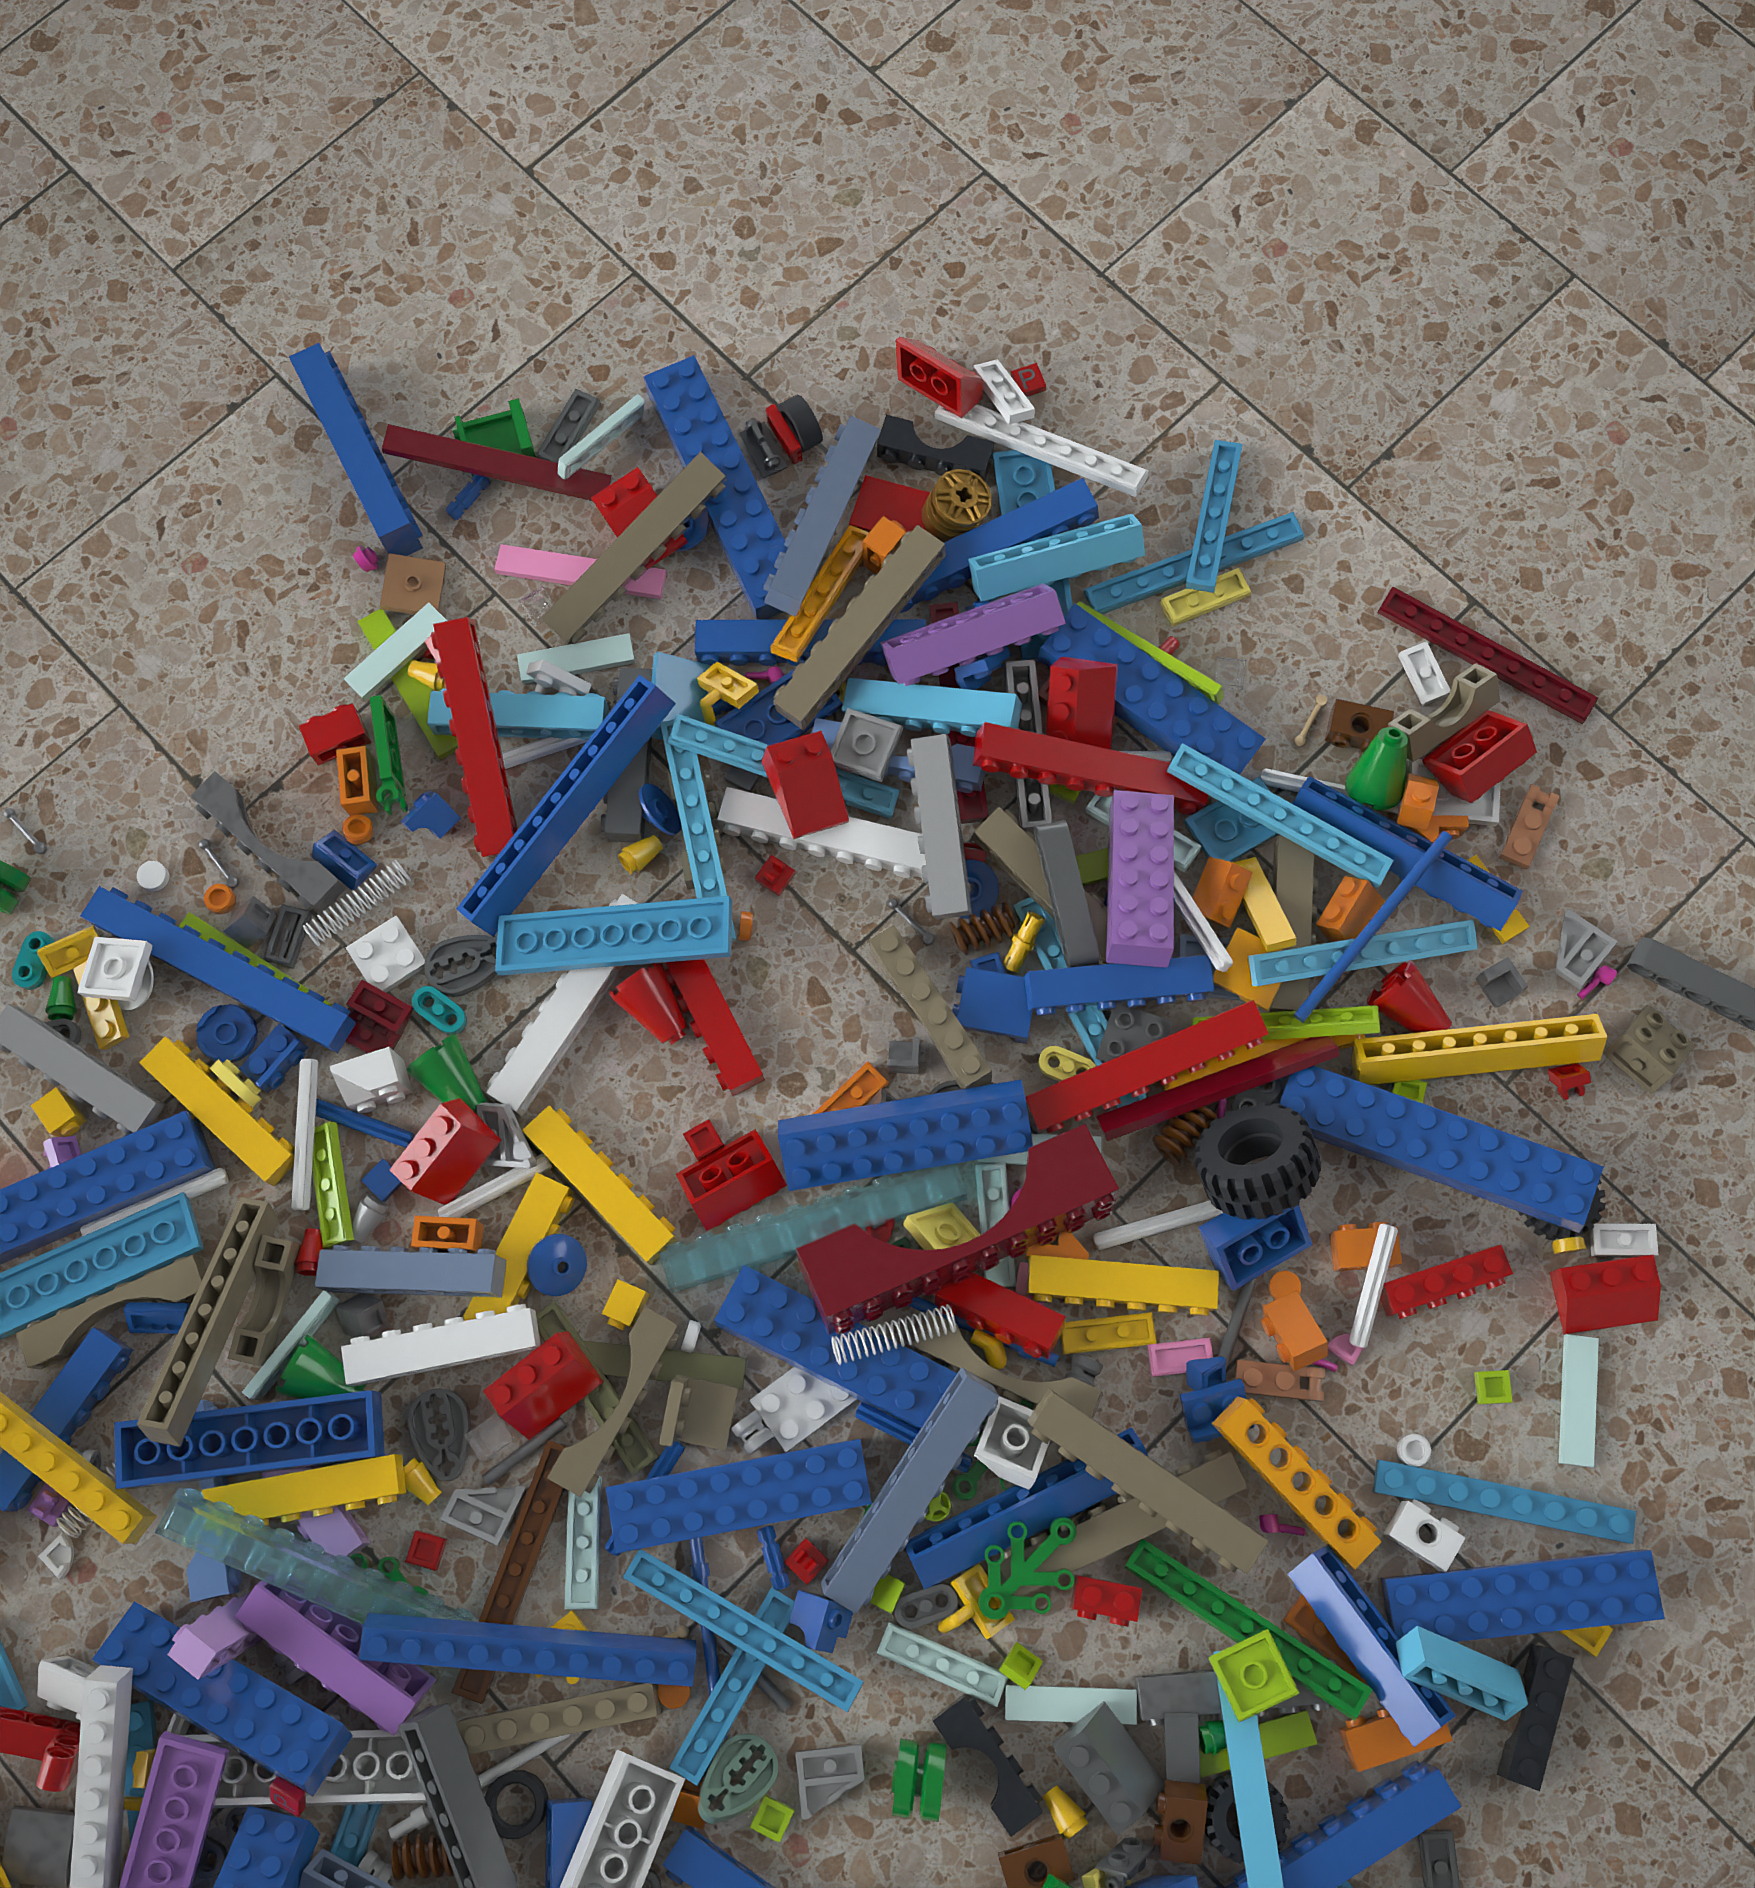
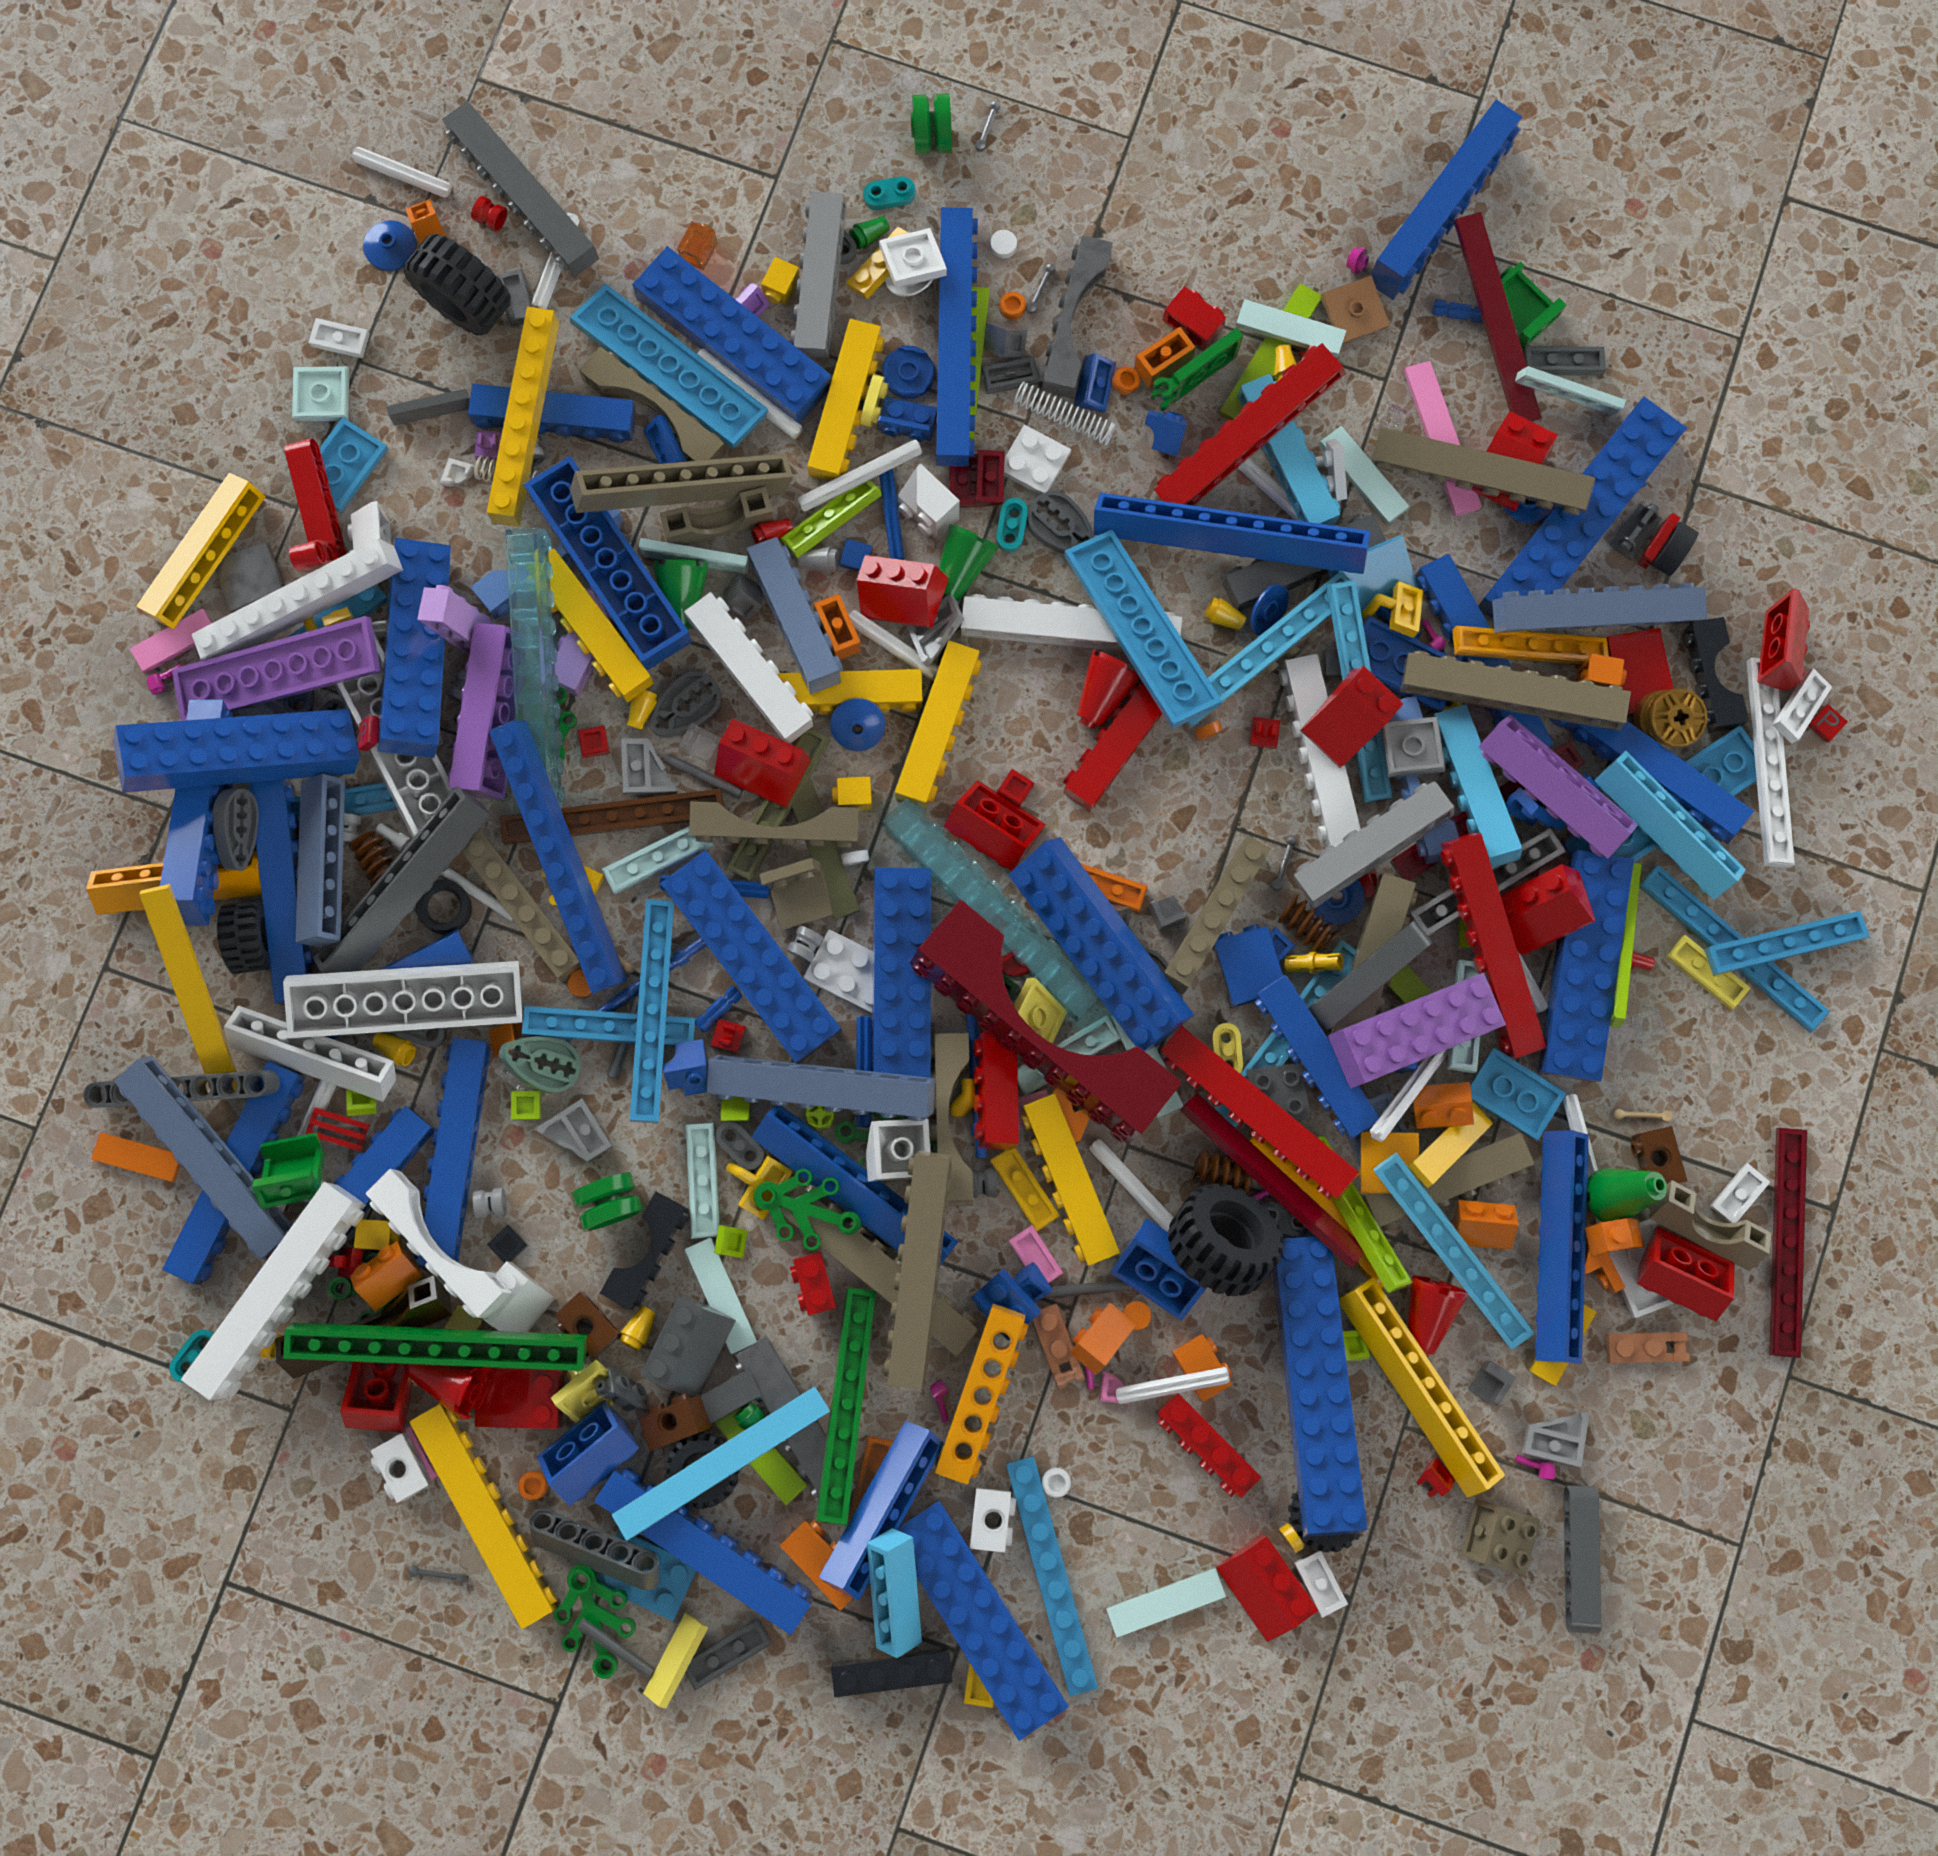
camera: 55 degrees right, 5 degrees up
(68, 952) = (908, 214): yellow plate -> none
(876, 1331) = (972, 1049): white piece -> none
(1253, 1675) = (811, 1425): lime tile -> none
(1280, 815) = (1536, 1123): medium azure plate -> none
(1373, 926) = (1479, 1246): blue piece -> none
(1493, 1387) = (1140, 1525): lime plate -> none

